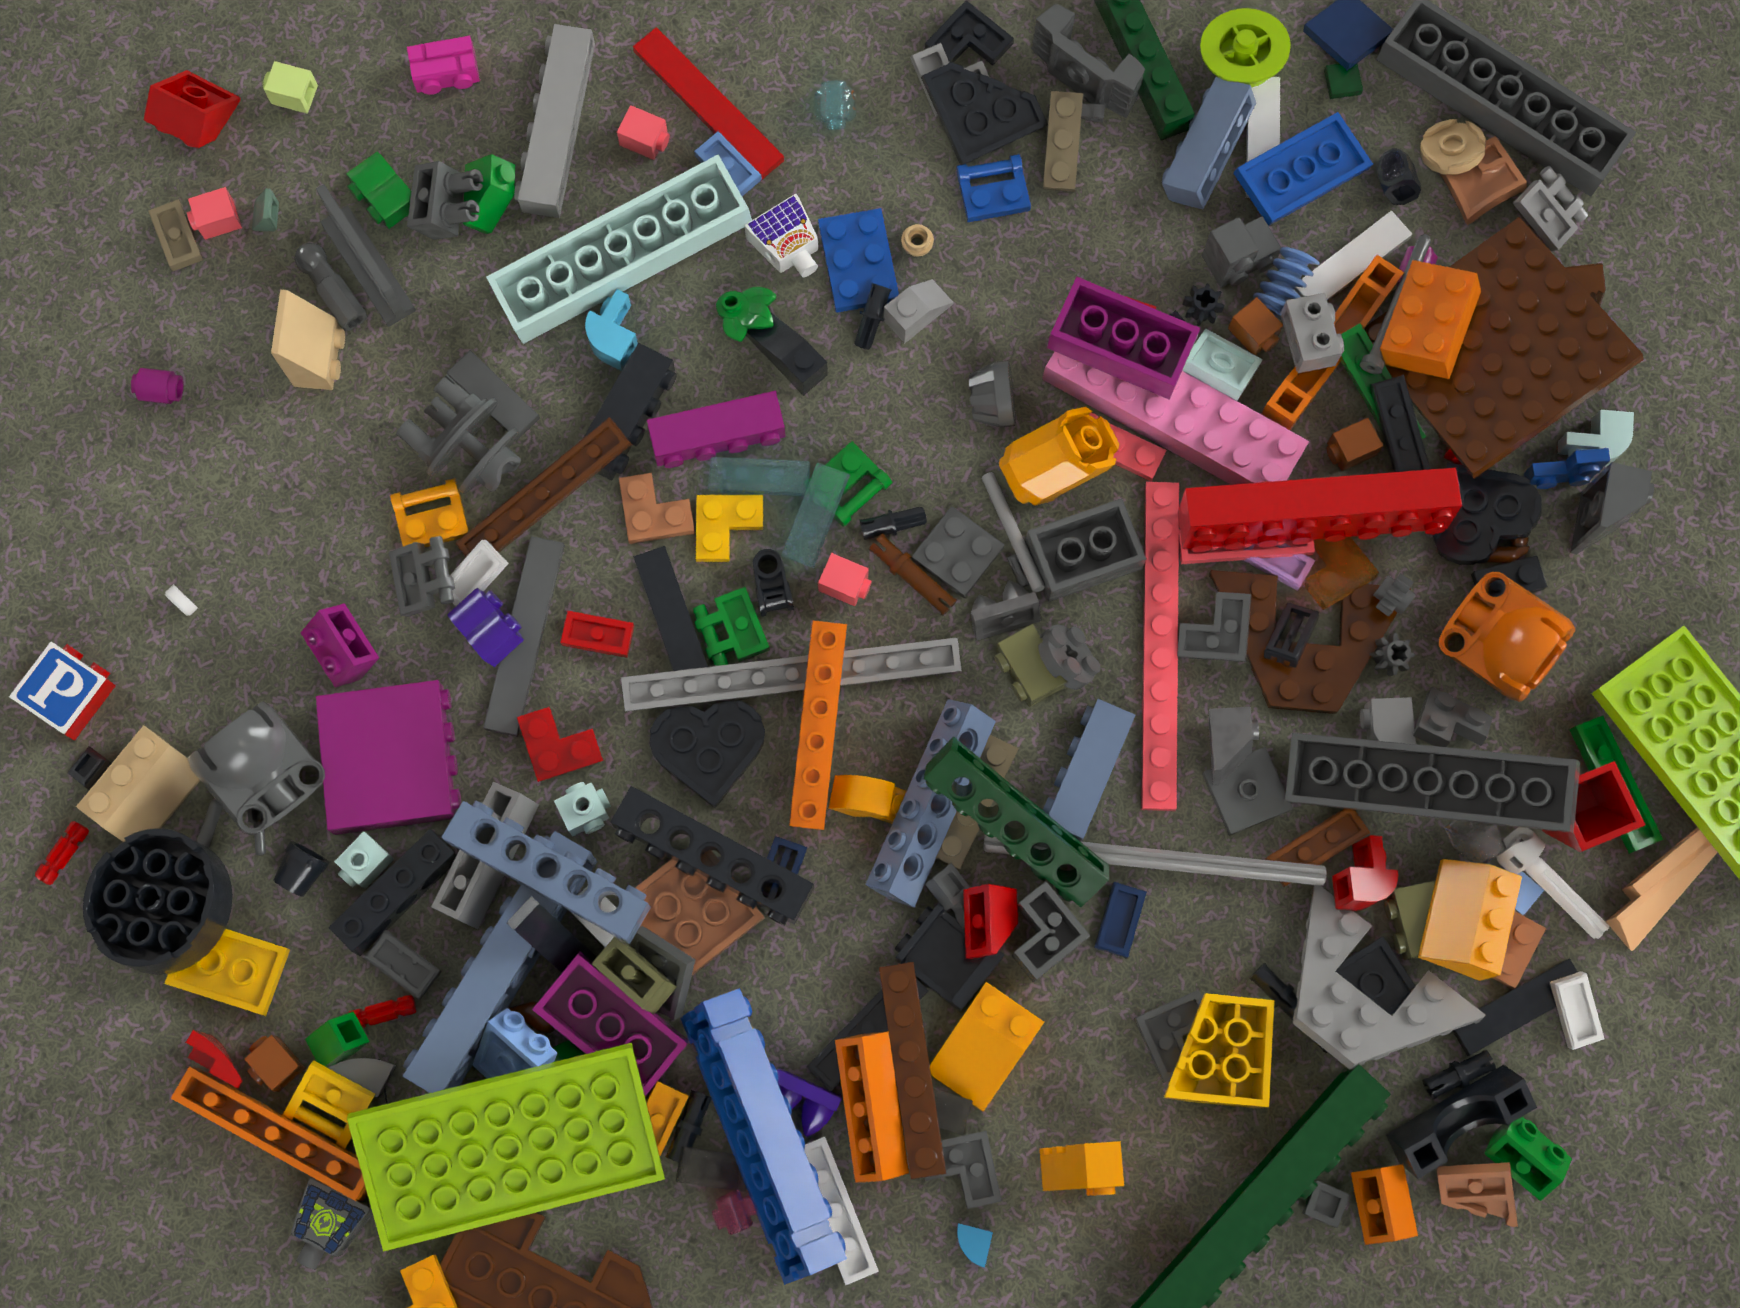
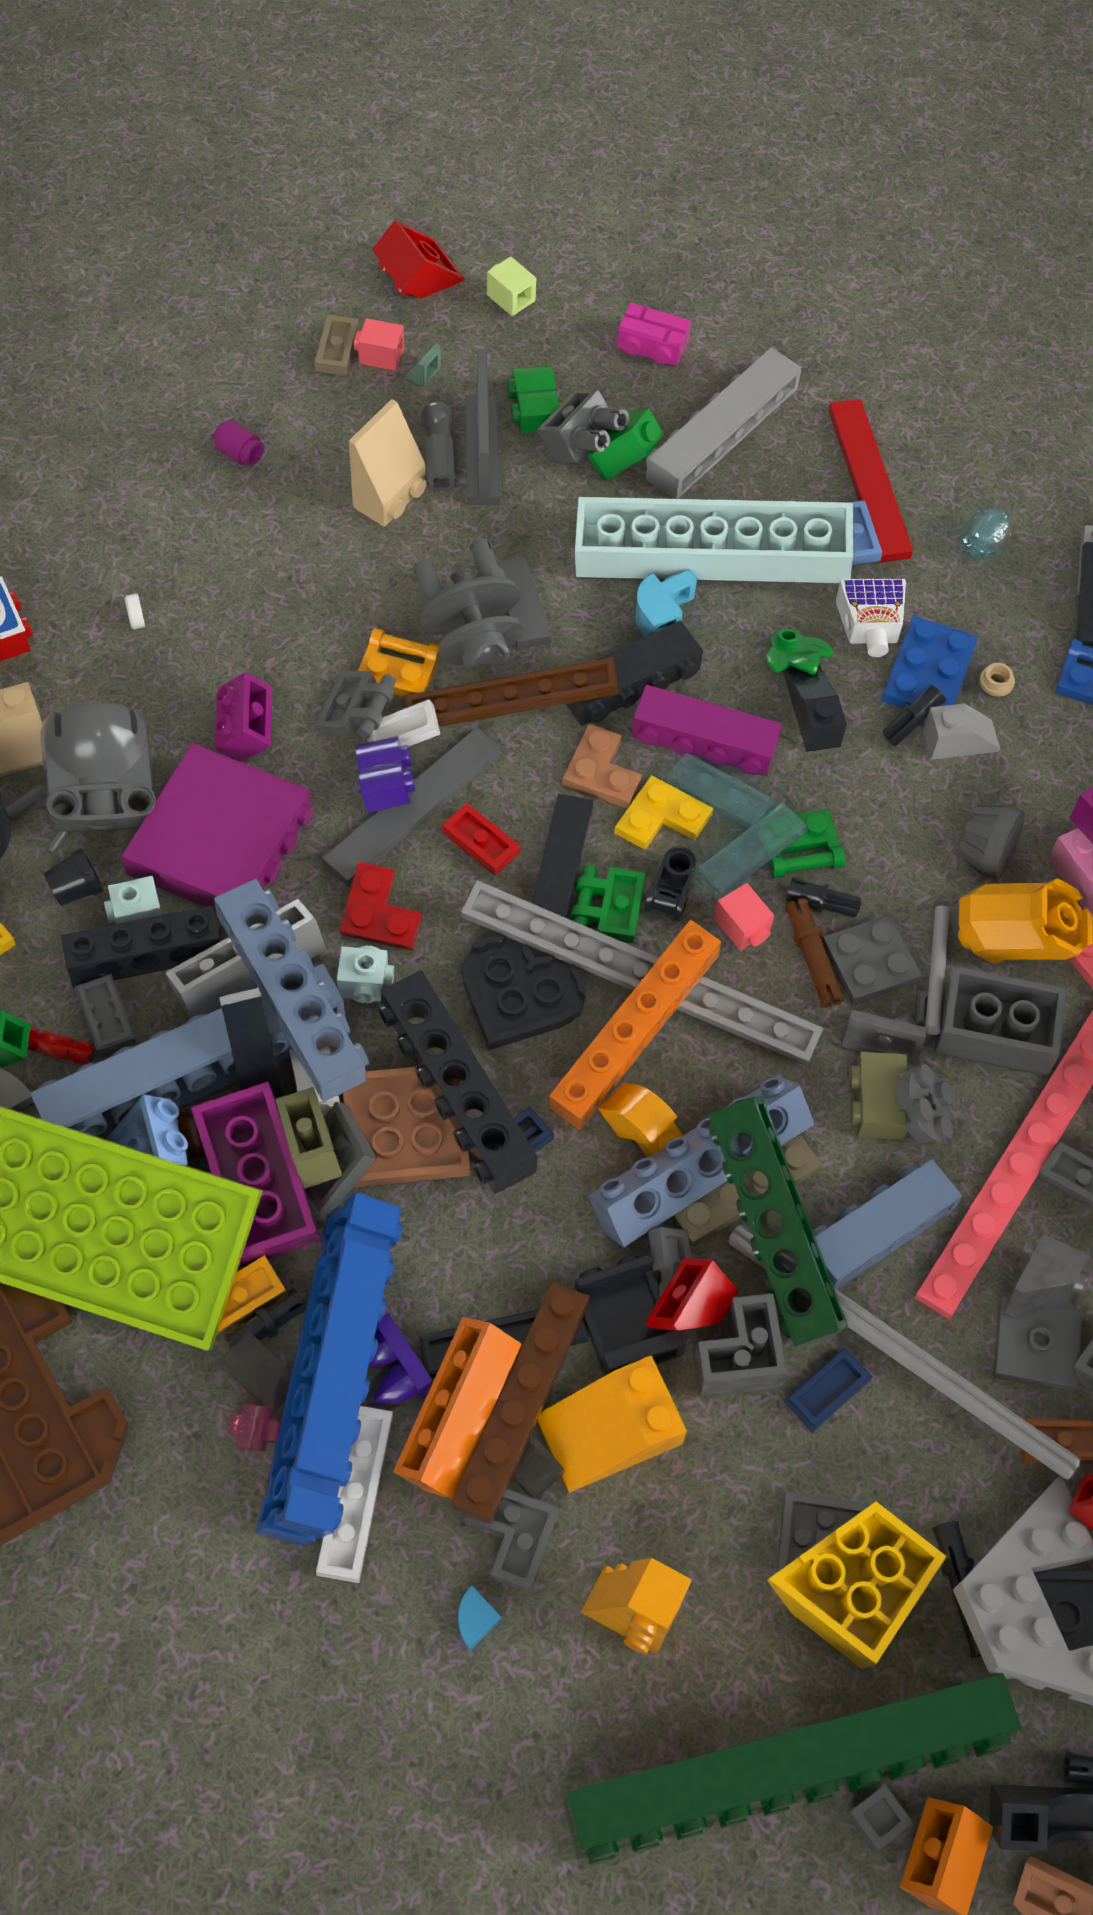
camera: 30 degrees right, 15 degrees down
(643, 133) = (795, 469): coral brick -> none

